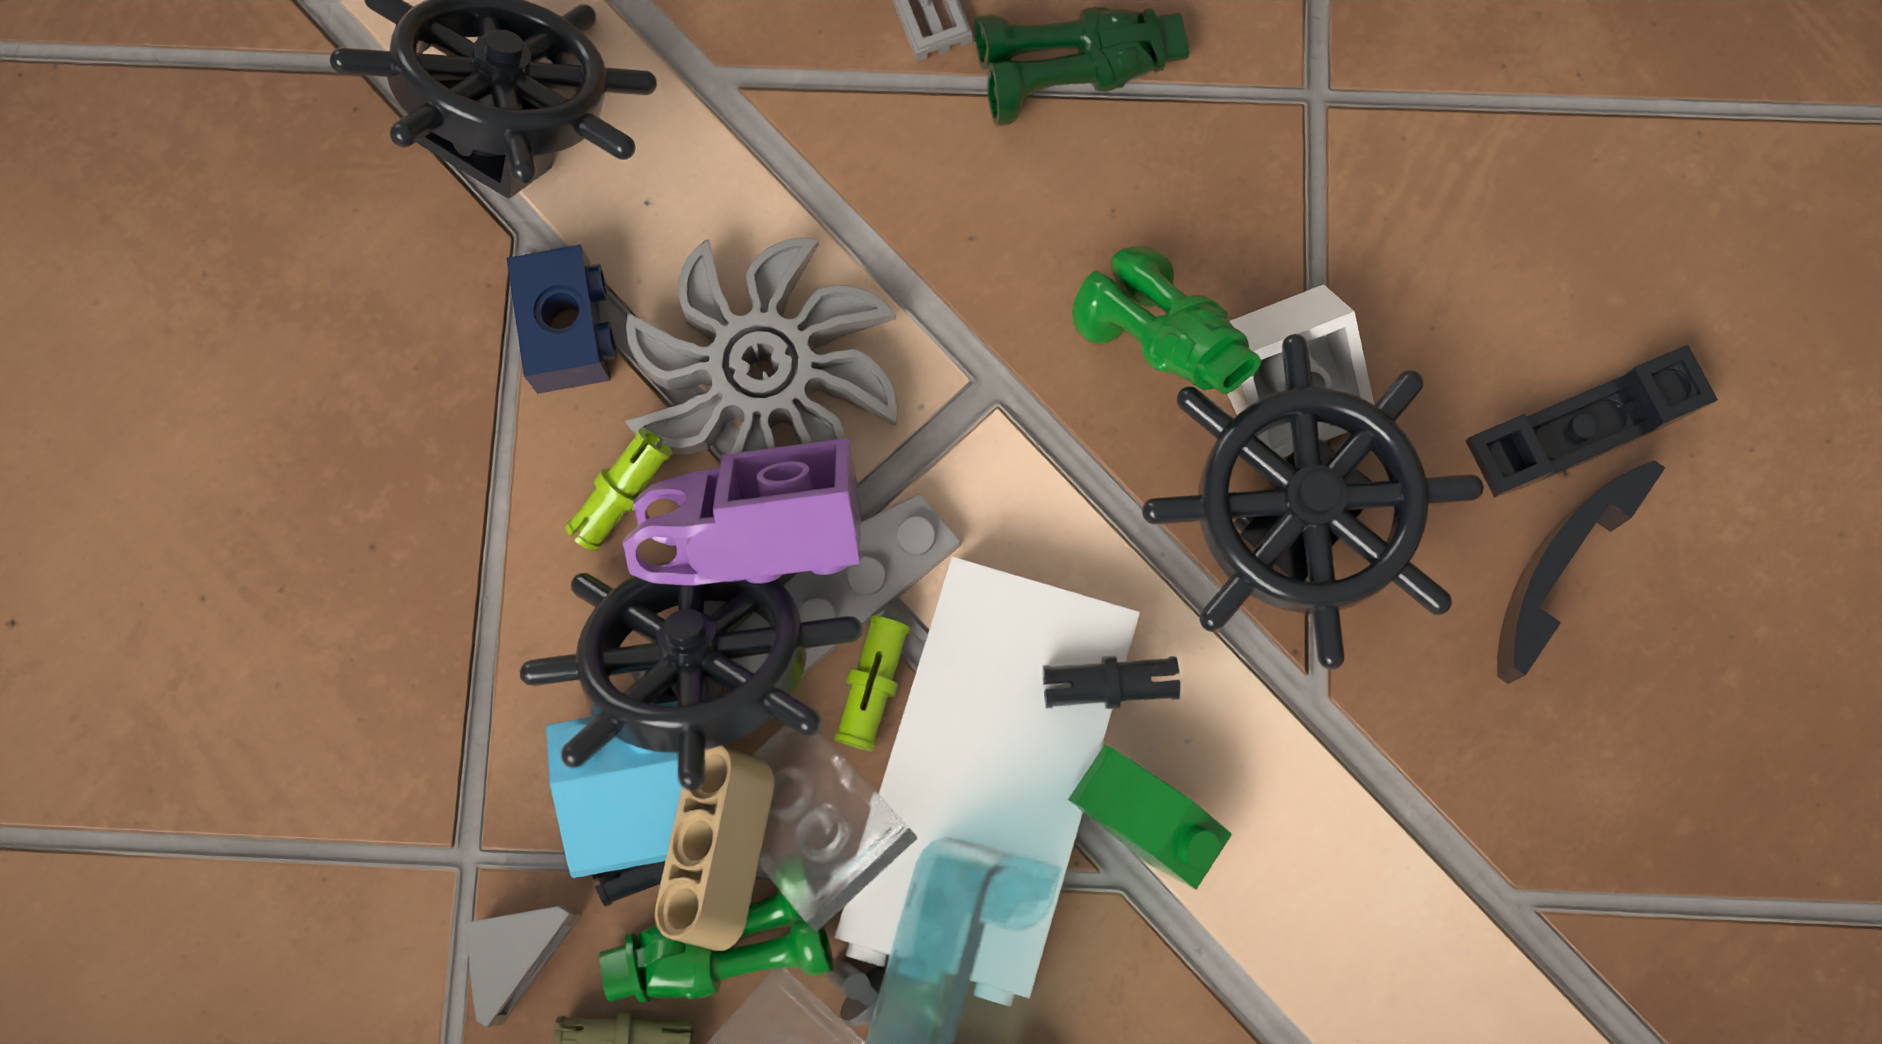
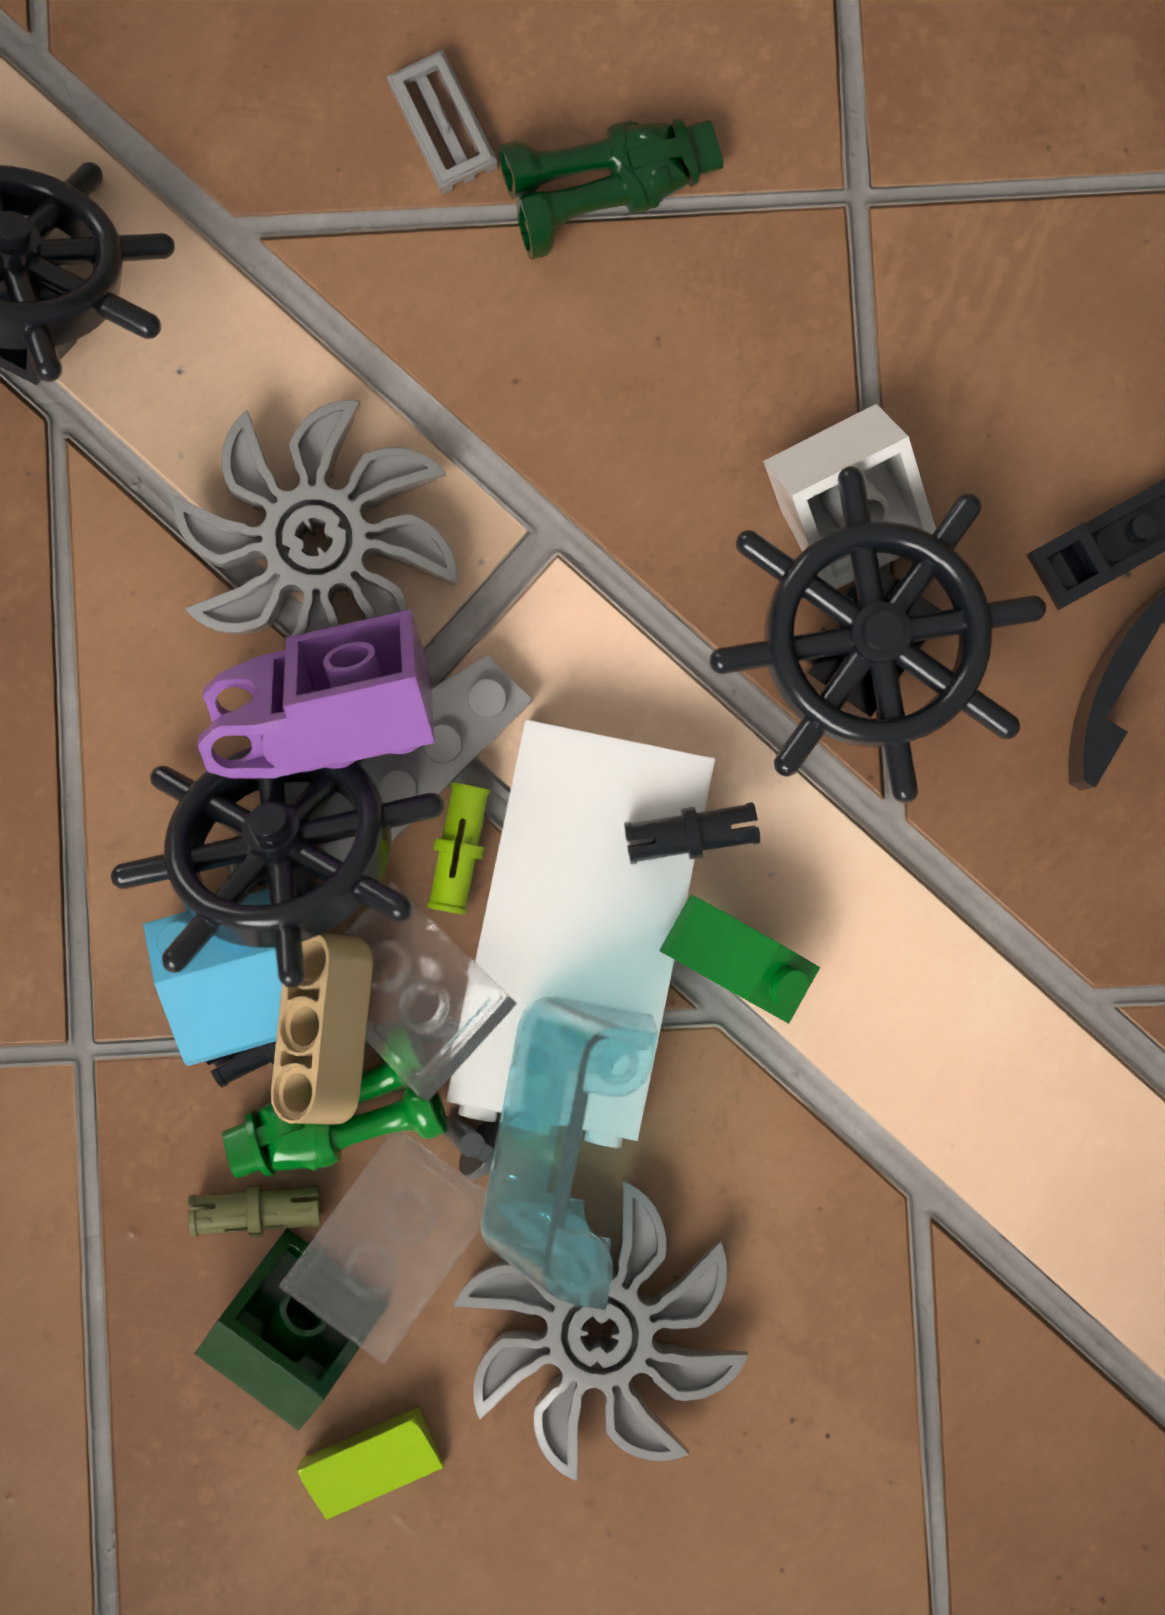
camera: 10 degrees left, 10 degrees up
(509, 955) = (135, 1142): light grey slope -> none
(541, 289) = (80, 478): dark blue brick -> none
(617, 489) = (186, 678): lime pin -> none
(1188, 341) = (743, 484): green piece -> none

